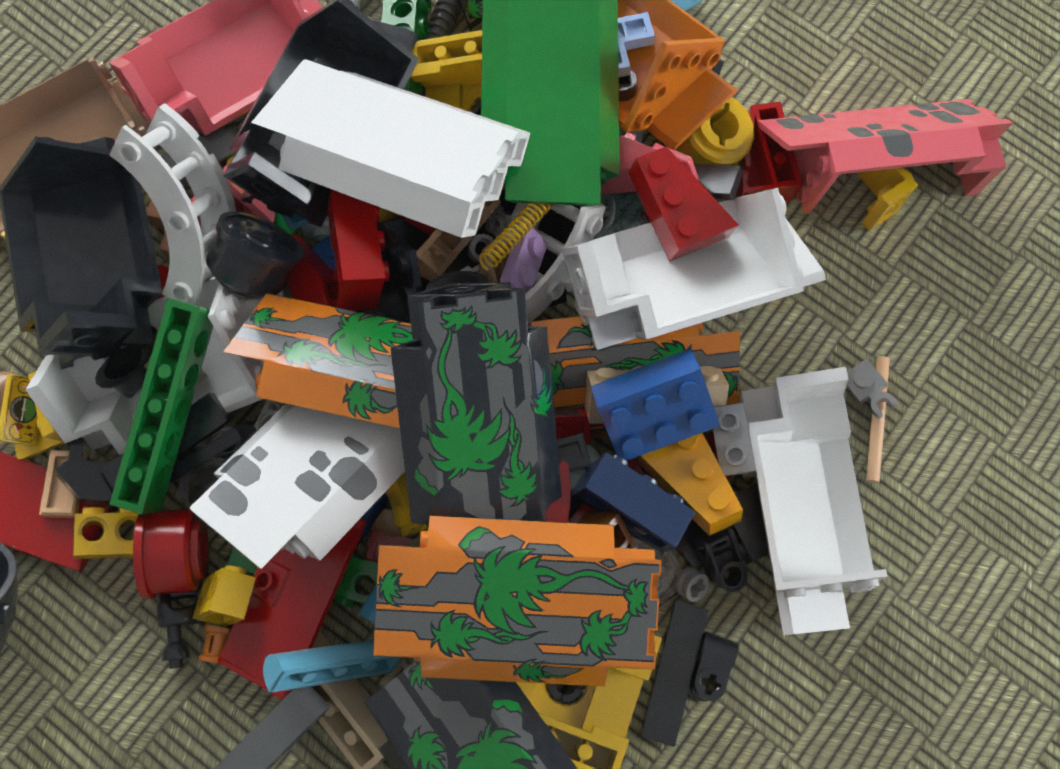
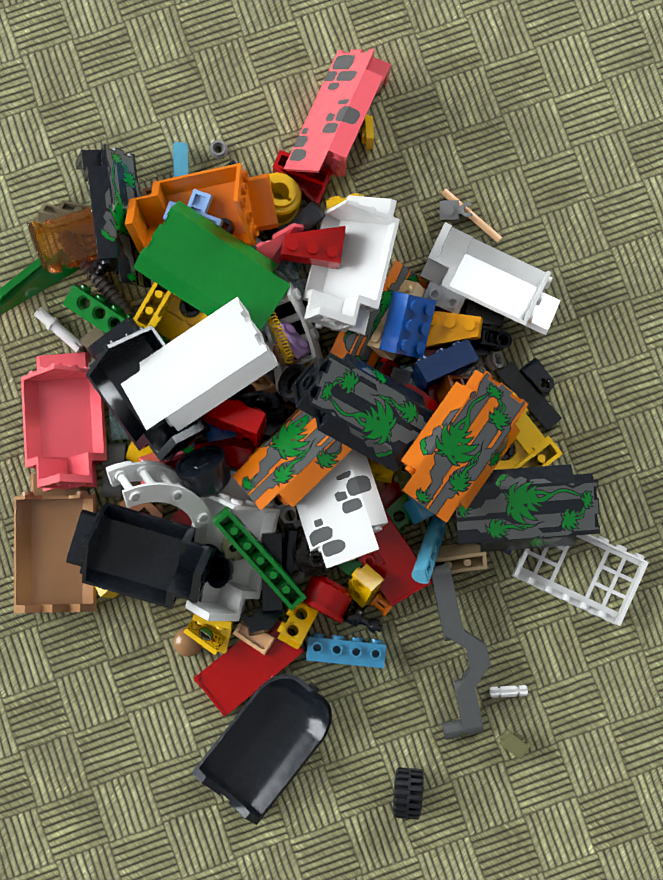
camera: 55 degrees left, 10 degrees up
(111, 635) = (346, 651): none -> dark azure brick
(729, 34) = (218, 144): none -> light grey plate

